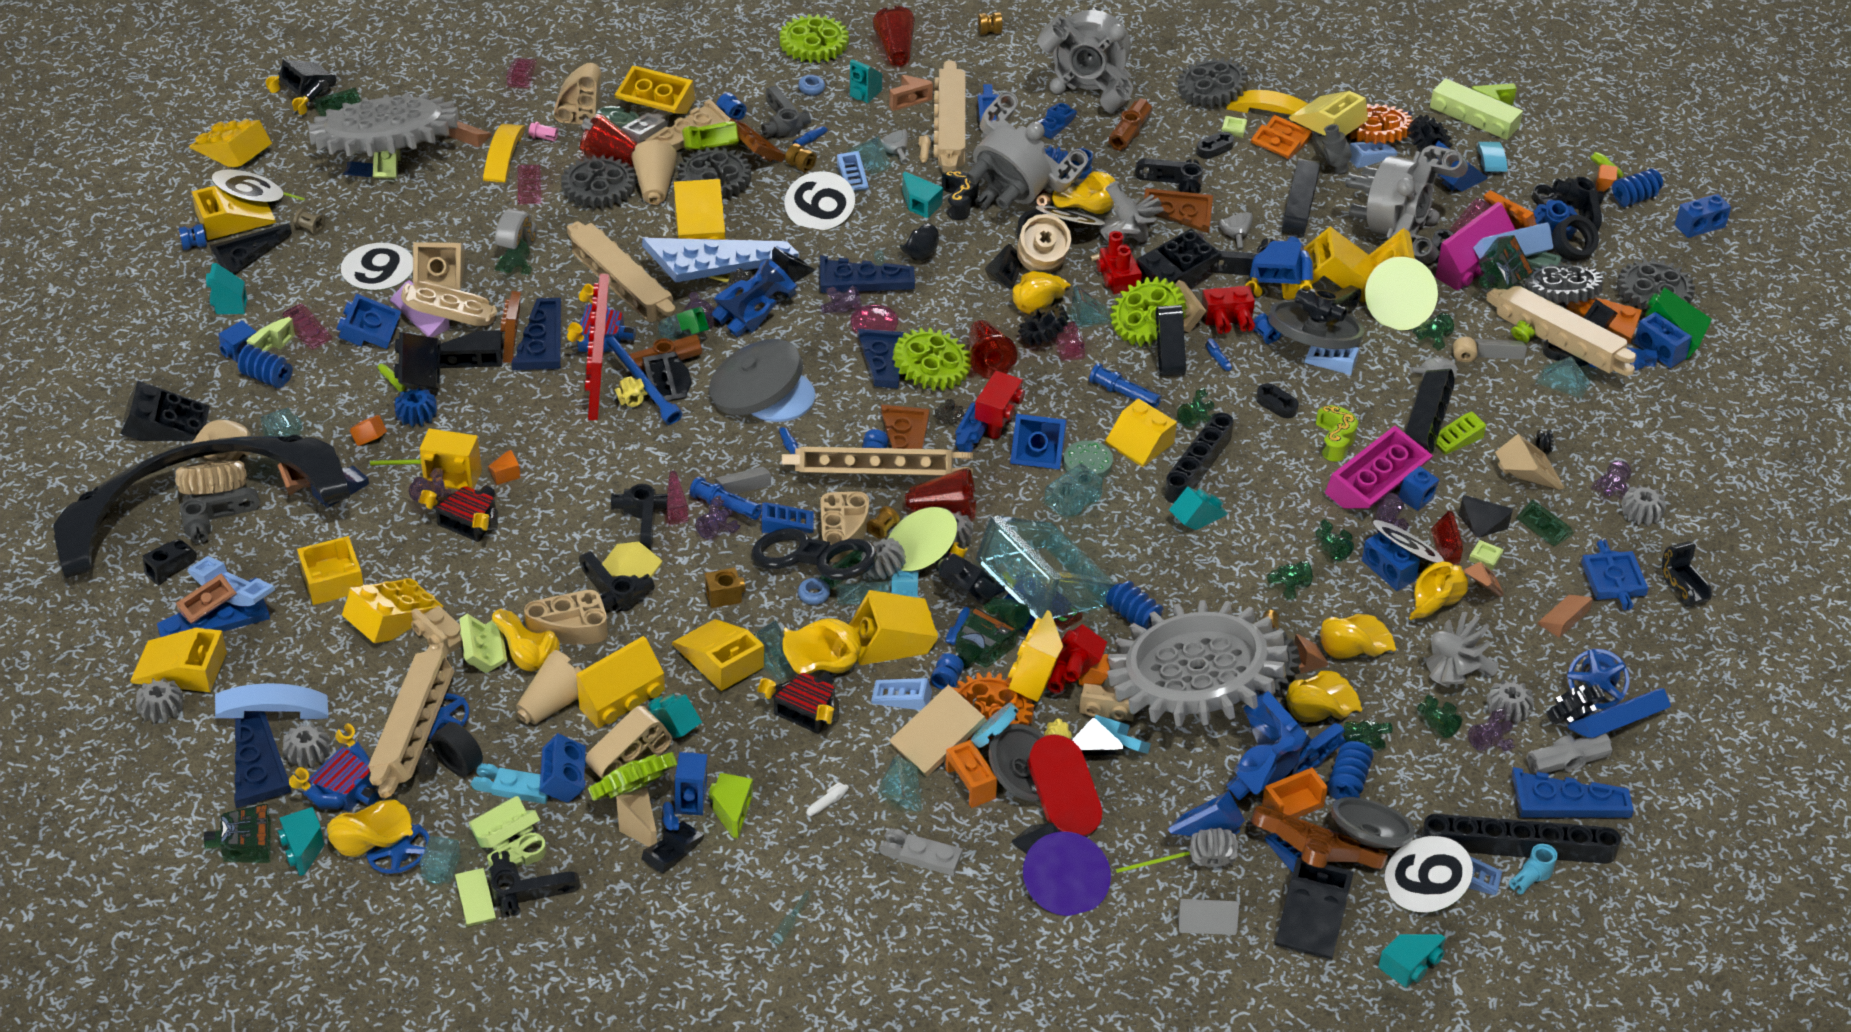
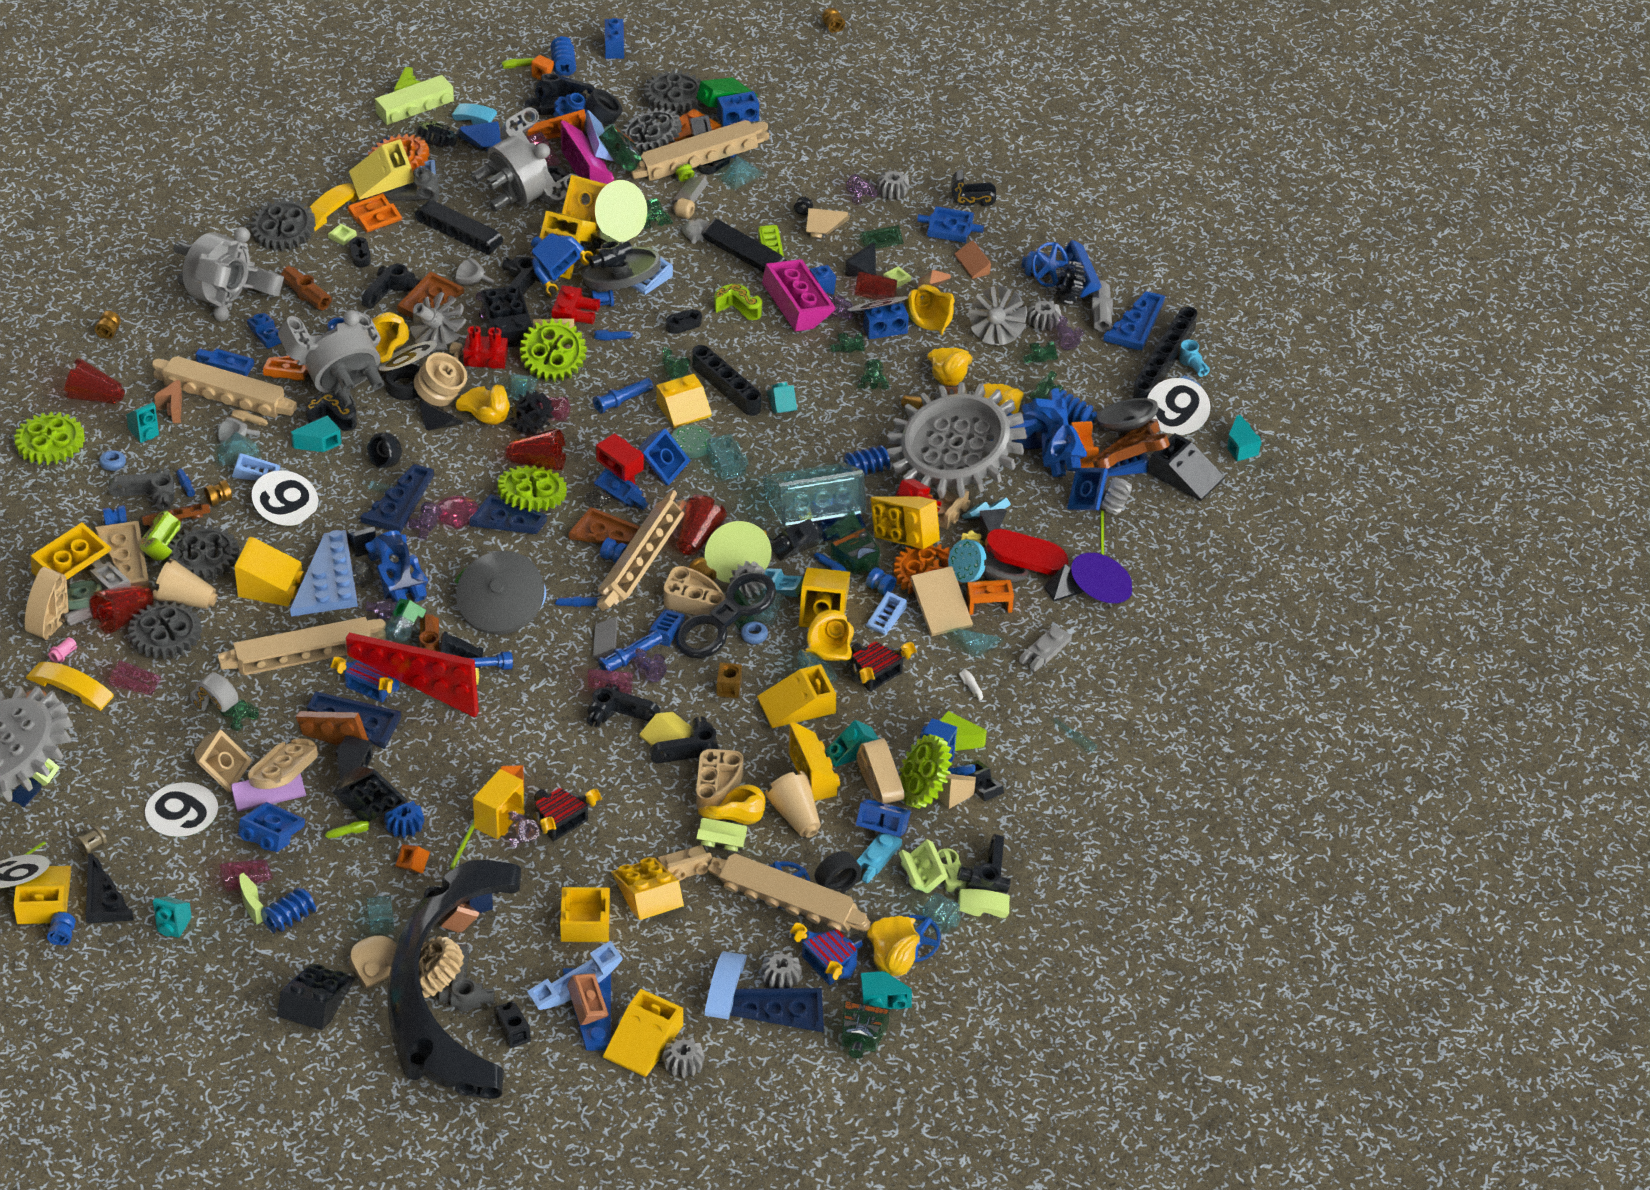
camera: 70 degrees left, 0 degrees up
(234, 339) = (241, 922): blue brick -> none
(1170, 340) = (599, 347): black beam -> none
(1208, 916) = (1168, 523): light grey slope -> none

